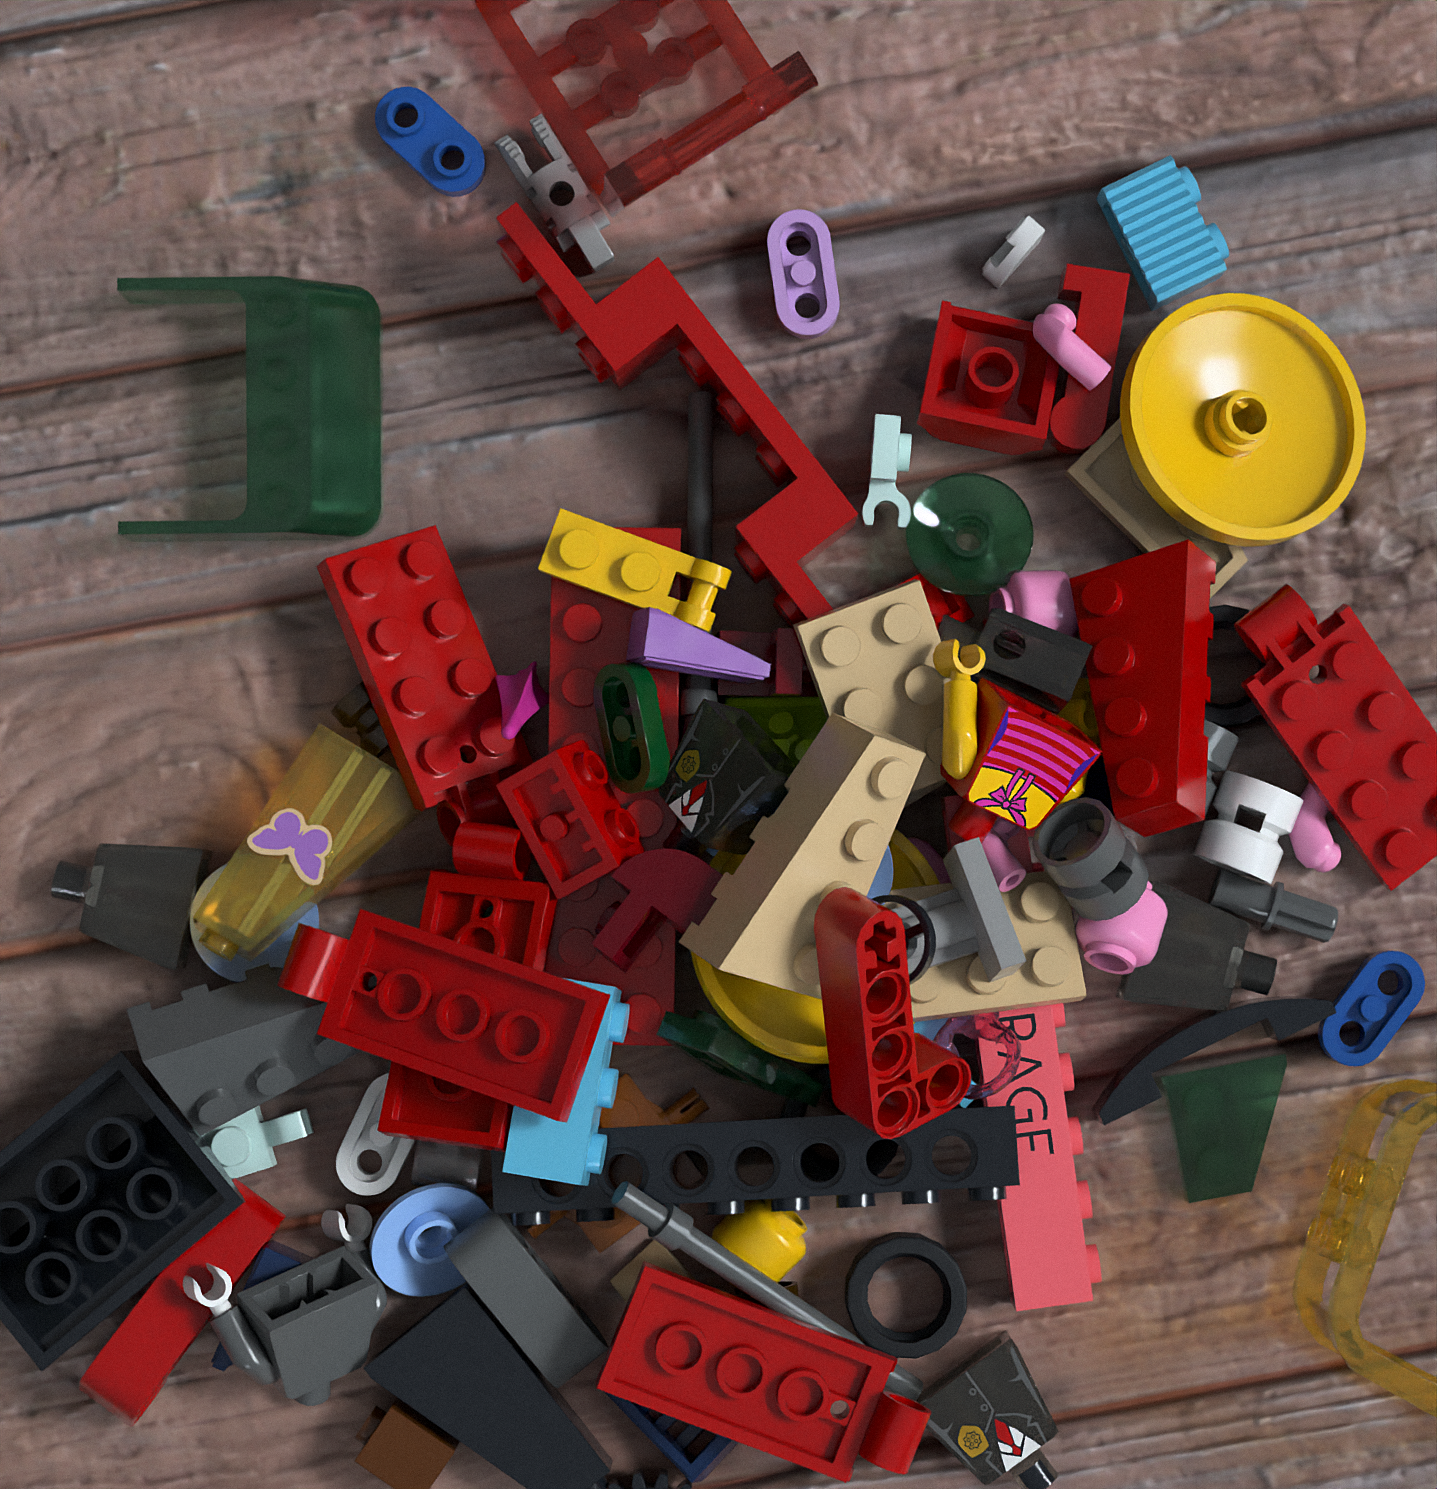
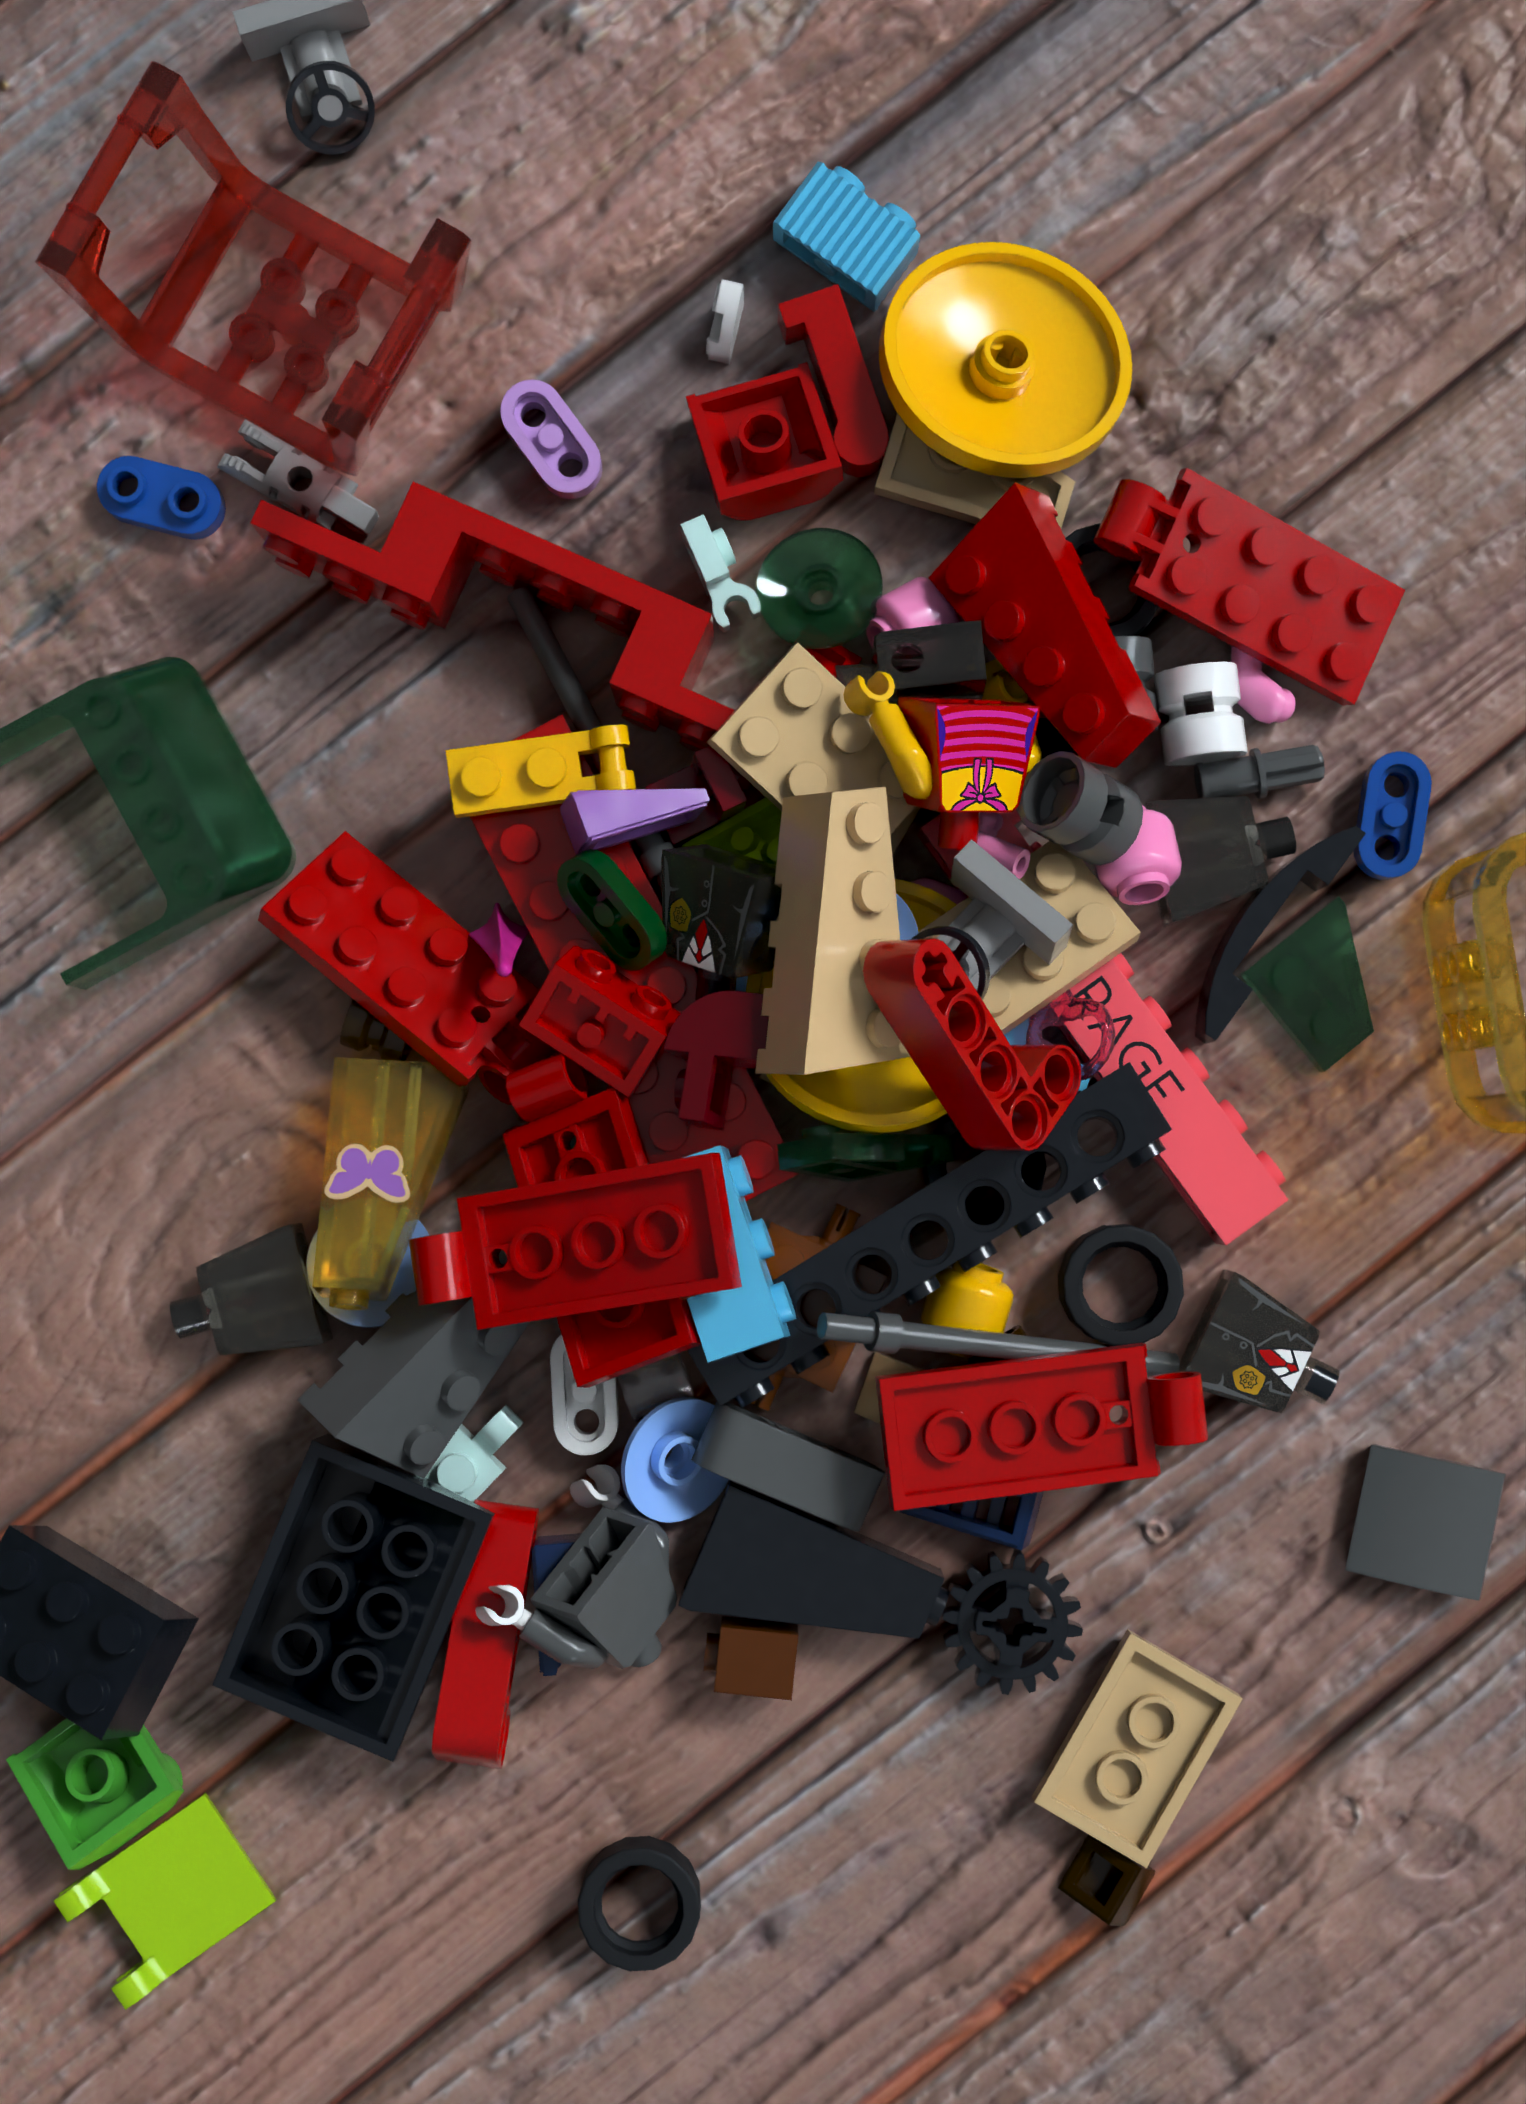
camera: 30 degrees left, 0 degrees up
(1055, 335) = (801, 371): bright pink arm -> none

